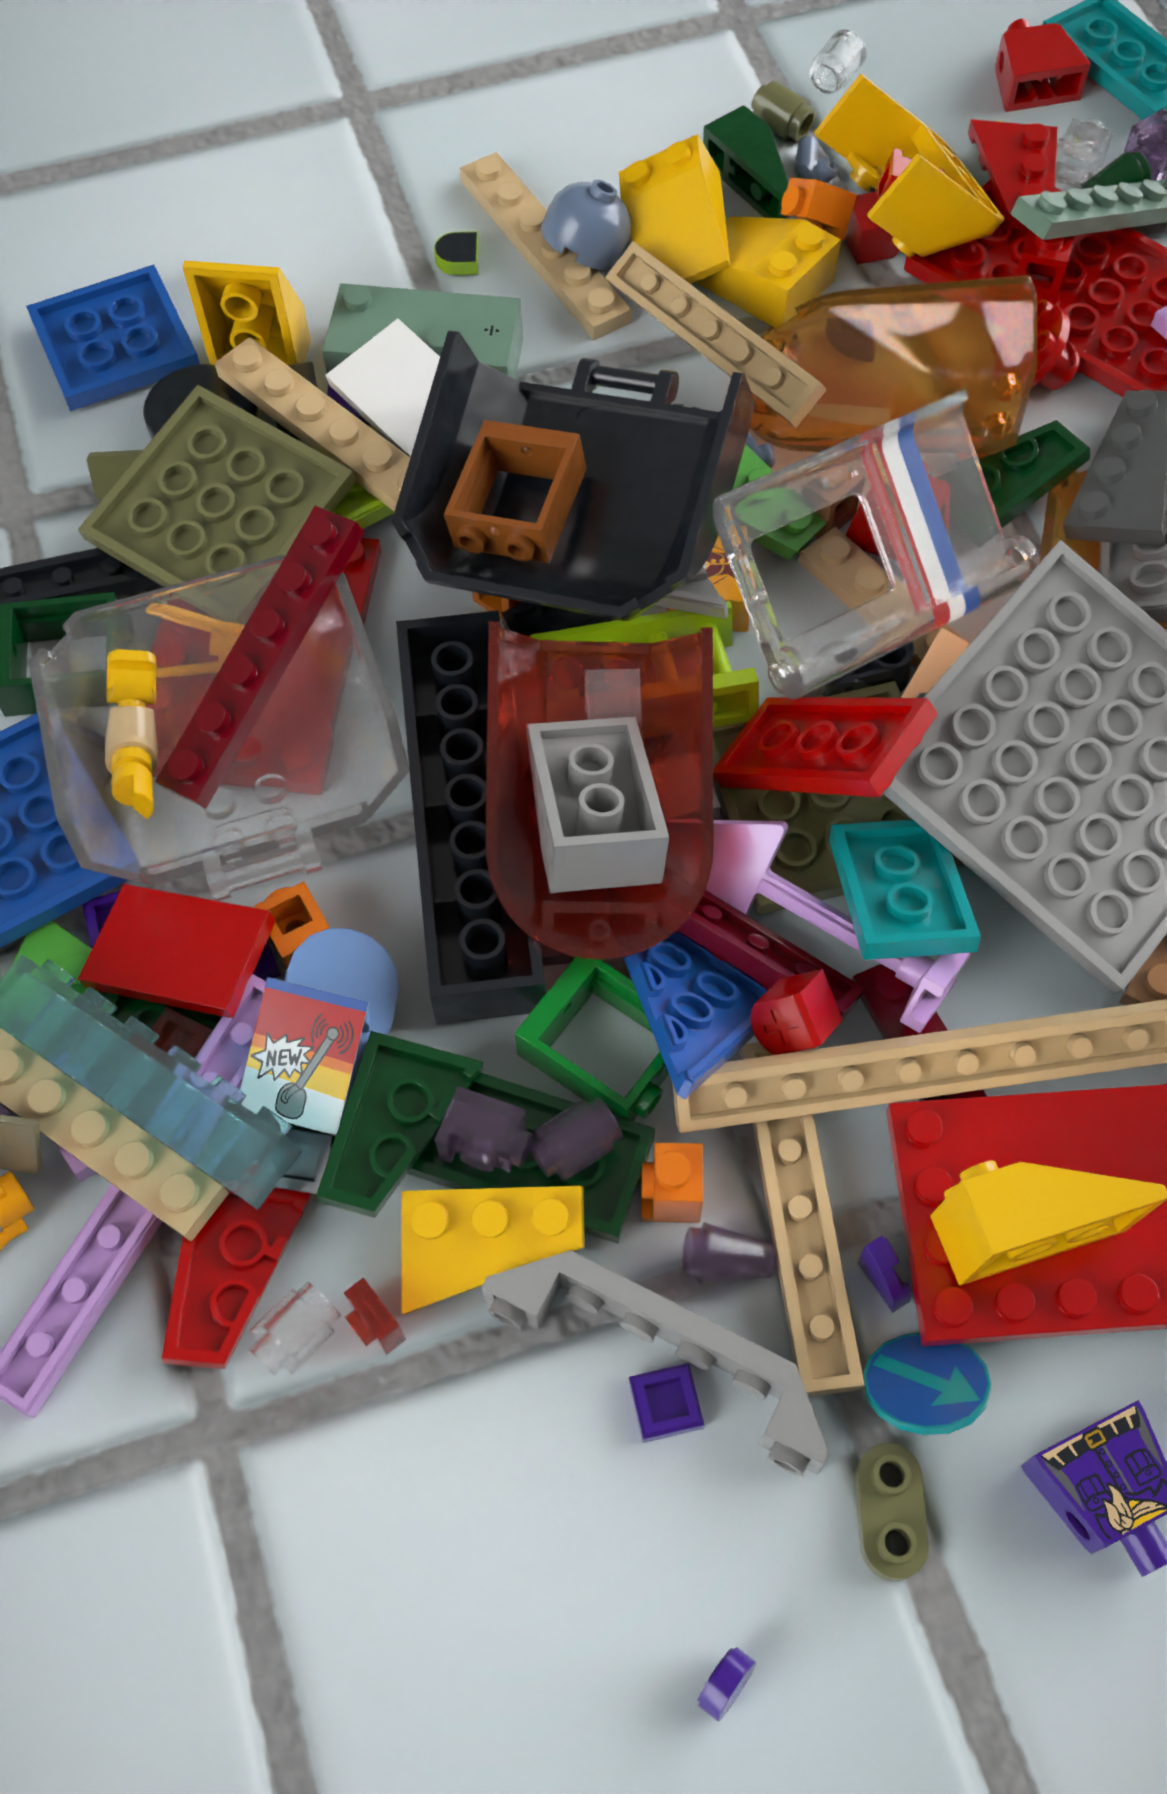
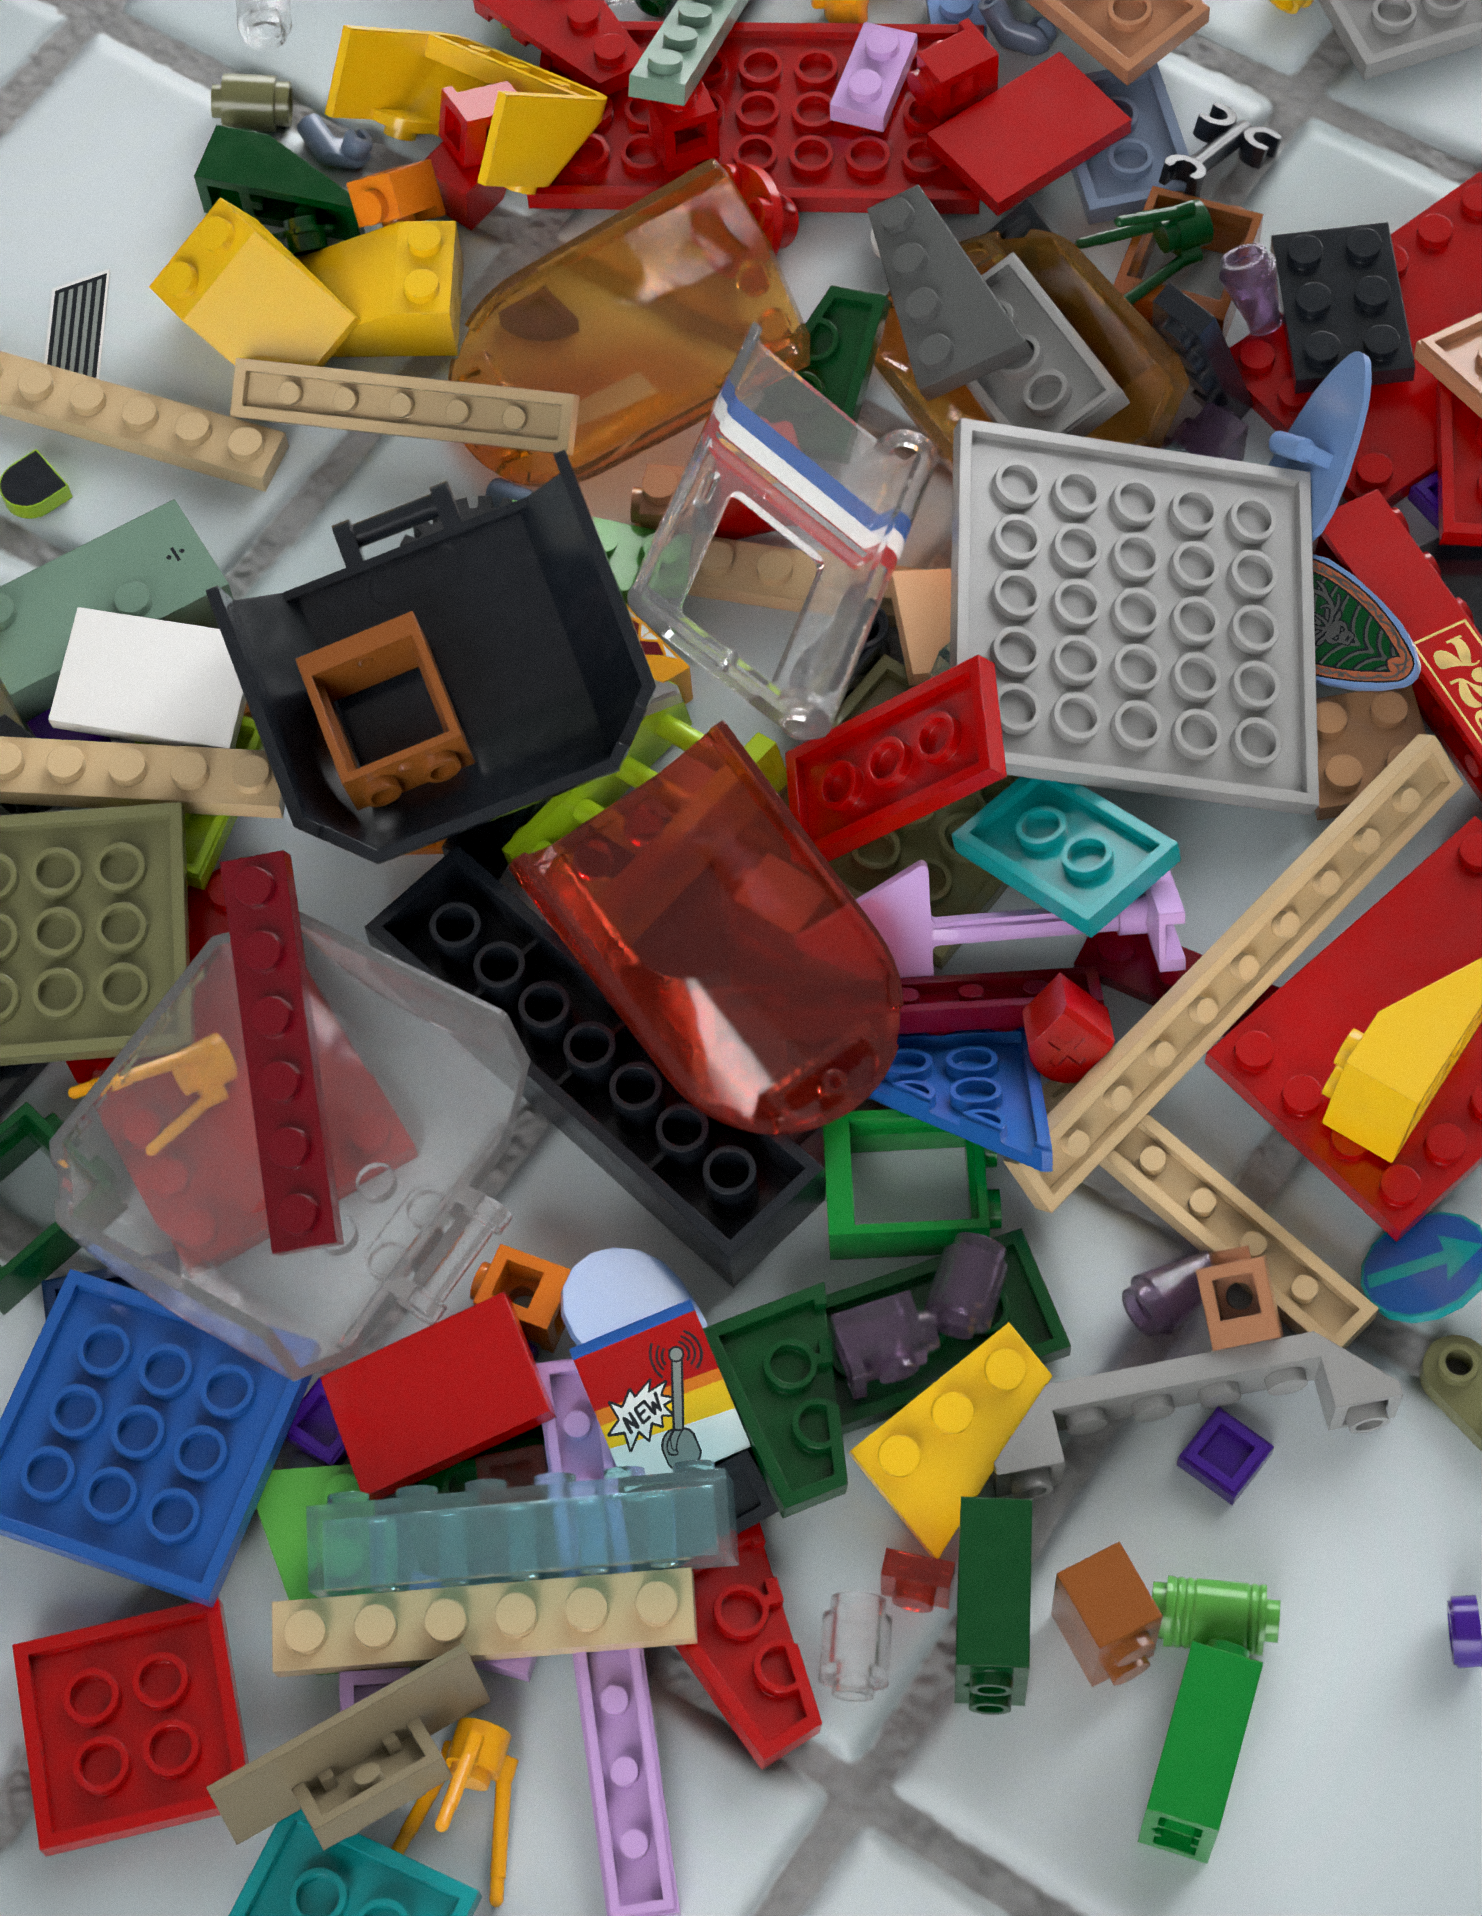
camera: 35 degrees left, 0 degrees up
(131, 728) = (199, 1220): yellow piece -> none
(396, 1376) = (993, 1604): none -> dark green window
(445, 1607) = (1201, 1750): none -> green window
(466, 1451) = (1107, 1616): none -> dark orange brick
(553, 1513) = (1216, 1610): none -> bright green head
(575, 169) = (78, 325): none -> sticker
(588, 222) = (165, 366): sand blue cylinder -> none
(596, 805) = (737, 965): light grey slope -> none
(612, 694) = (661, 853): clear tile -> none
(673, 1184) = (1079, 1263): orange brick -> none
(739, 1303) = (1234, 1326): none -> nougat brick
(744, 201) = (304, 235): none -> dark green plate
(877, 1264) = (1315, 1207): dark purple tile -> none

